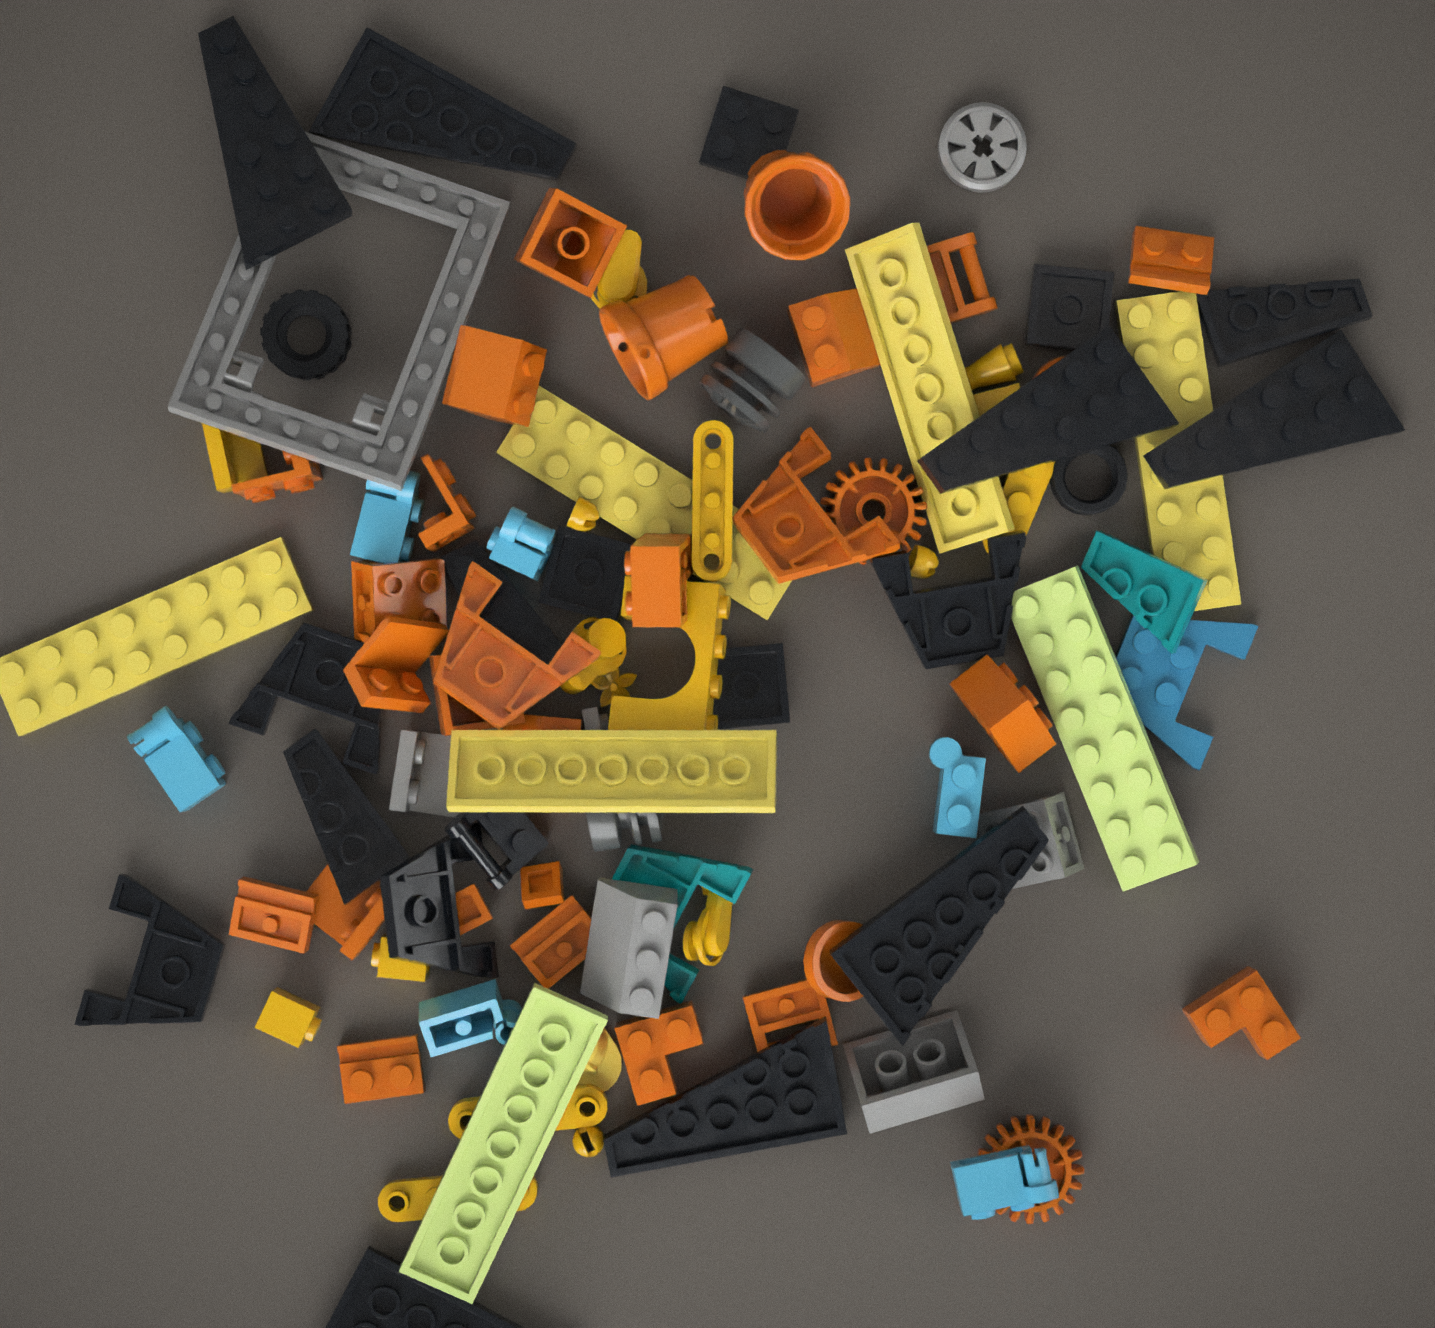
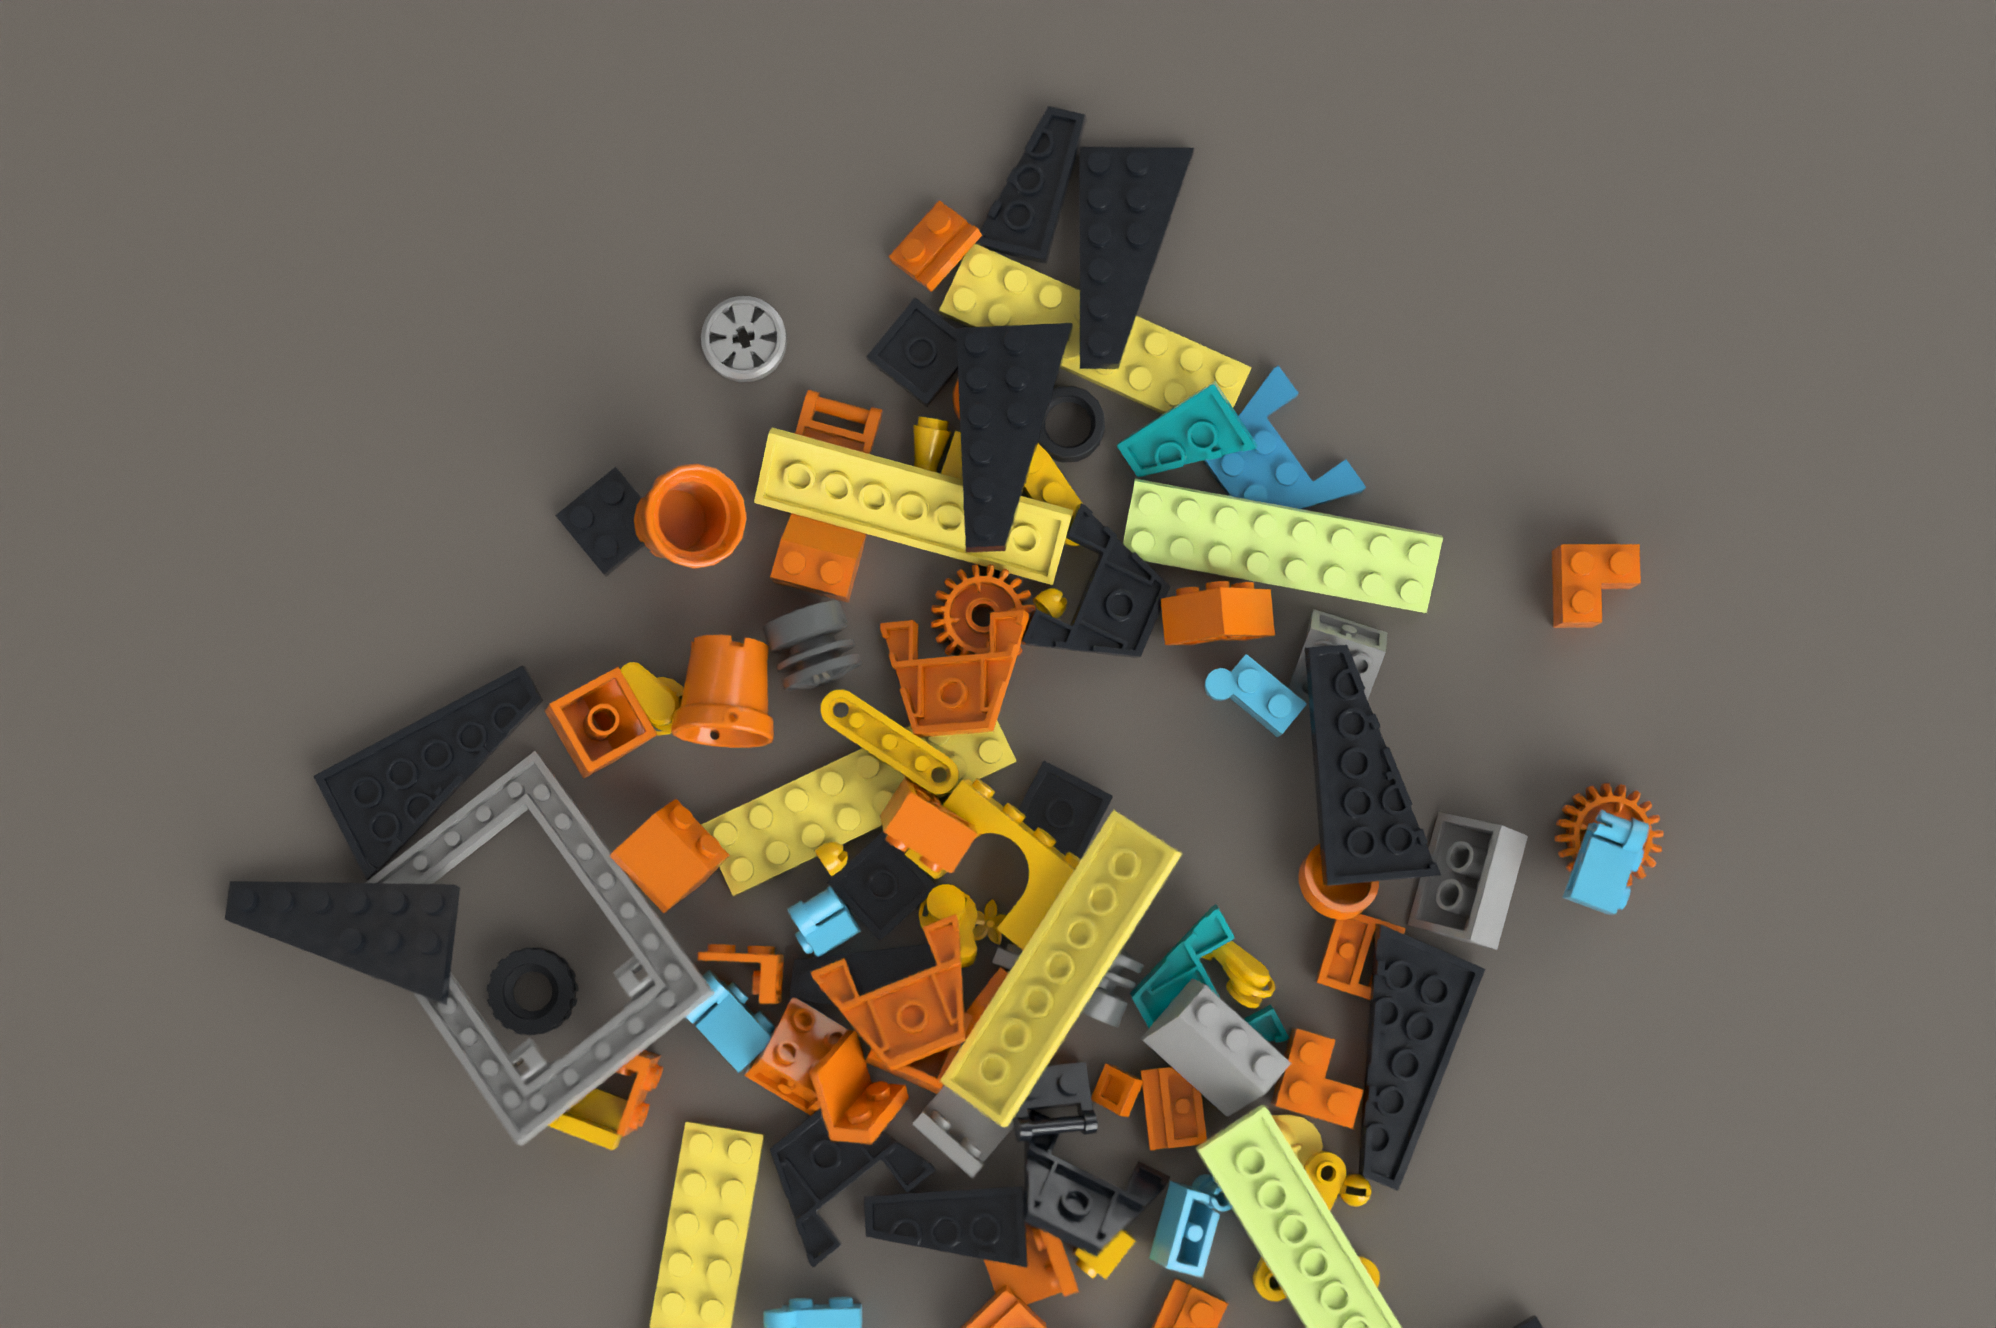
camera: 60 degrees left, 5 degrees down
(471, 908) = (1099, 1162): orange plate -> none

